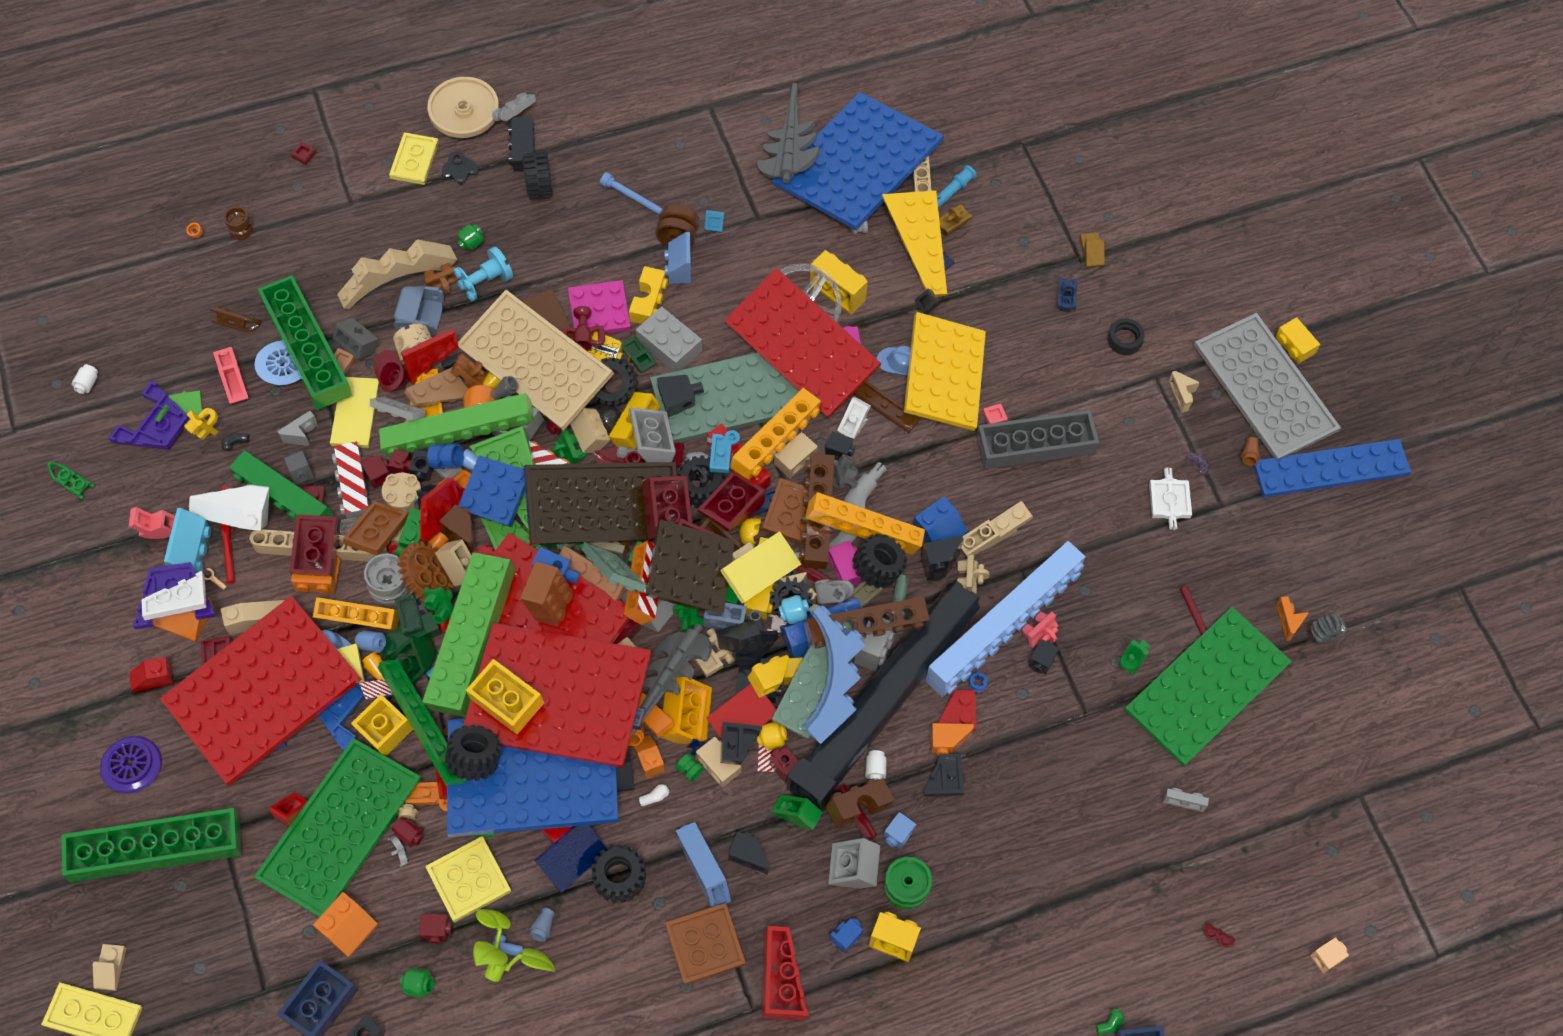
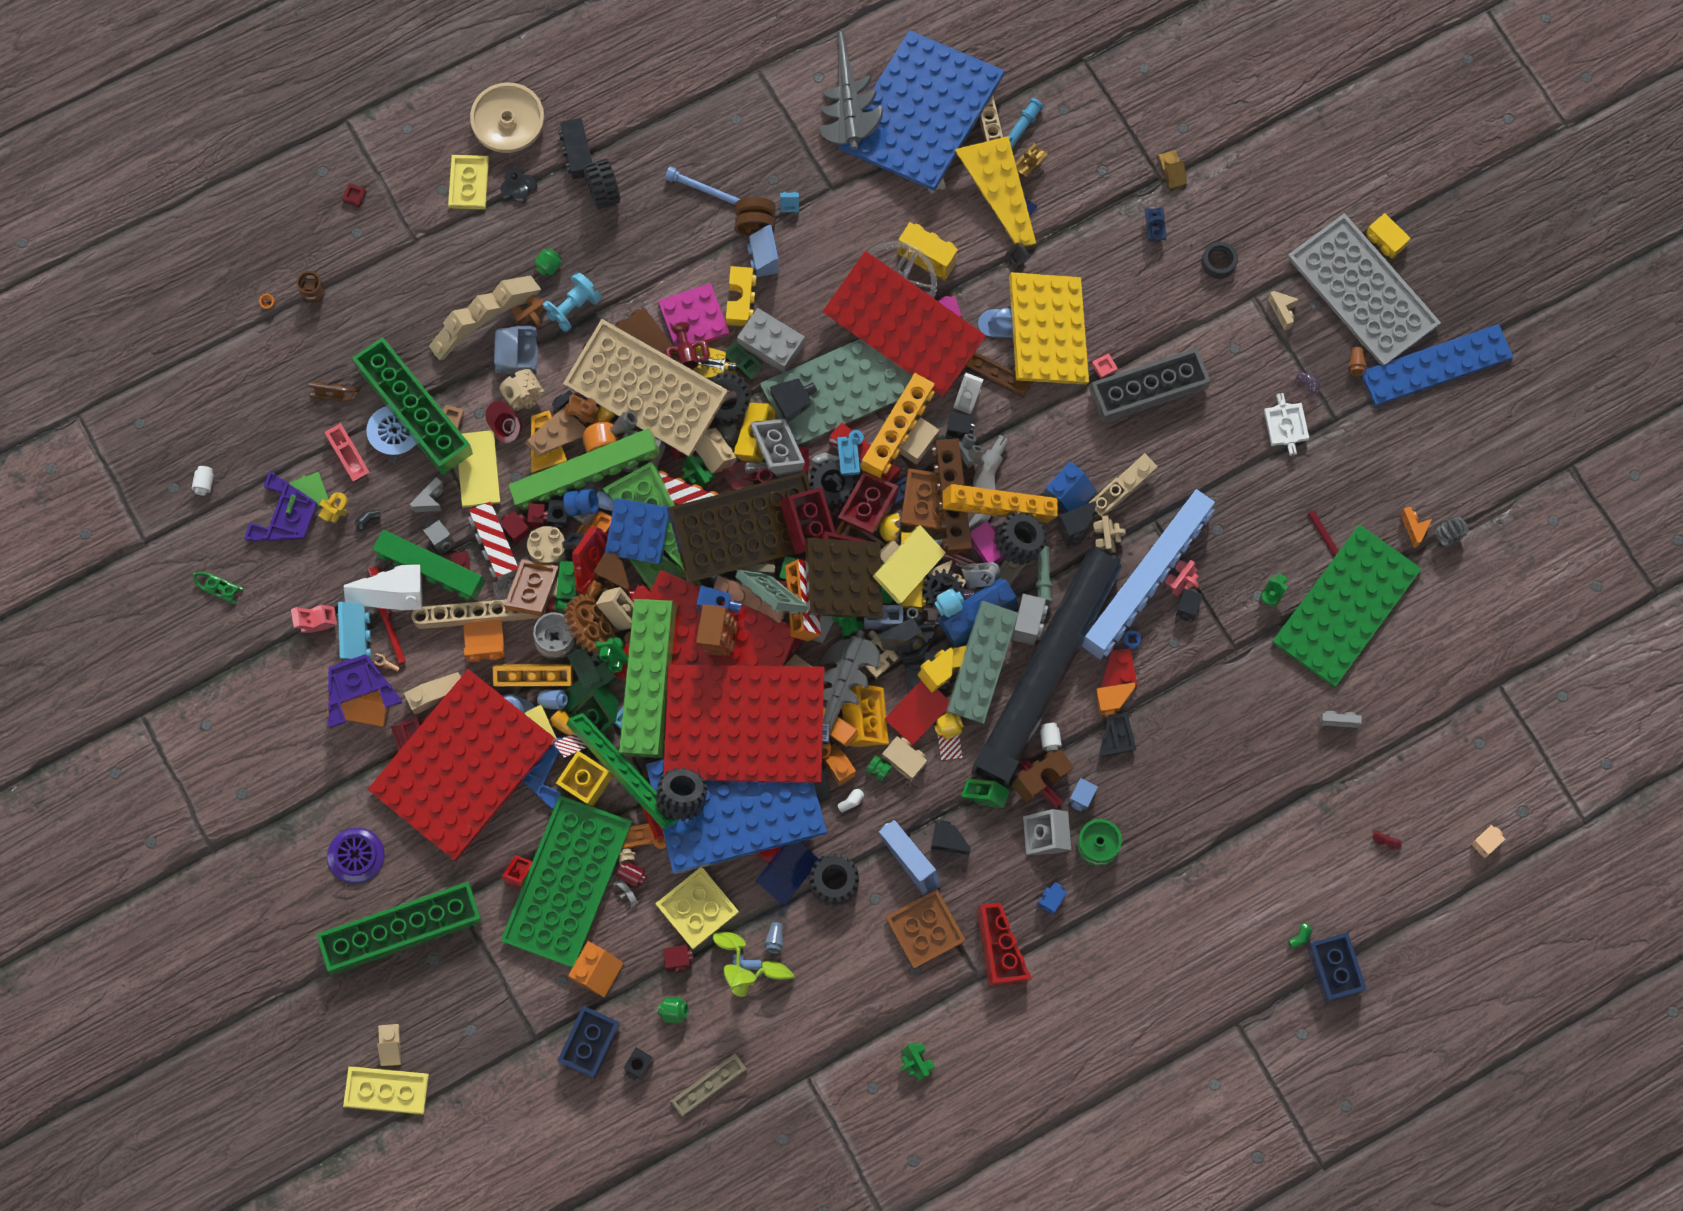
camera: 10 degrees left, 10 degrees up
(151, 674) = (351, 767): red slope -> none
(181, 598) = (367, 692): white wing -> none
(314, 546) = (478, 616): dark red slope -> none
(355, 338) = (460, 392): dark grey brick -> none
(397, 408) = (521, 460): light grey plate -> none
(424, 355) = (536, 401): red wing -> none
(505, 696) = (699, 736): yellow brick -> none
(513, 107) = (559, 109): light grey hinge -> none
(695, 744) = (882, 746): clear blue hand -> none
(737, 742) = (919, 738): black wing -> none
(781, 768) = (965, 756): dark red brick -> none
(841, 648) = (1004, 688): medium blue arch -> none
(894, 936) = (1096, 893): yellow brick -> none
(914, 607) = (1064, 583): reddish brown brick -> none

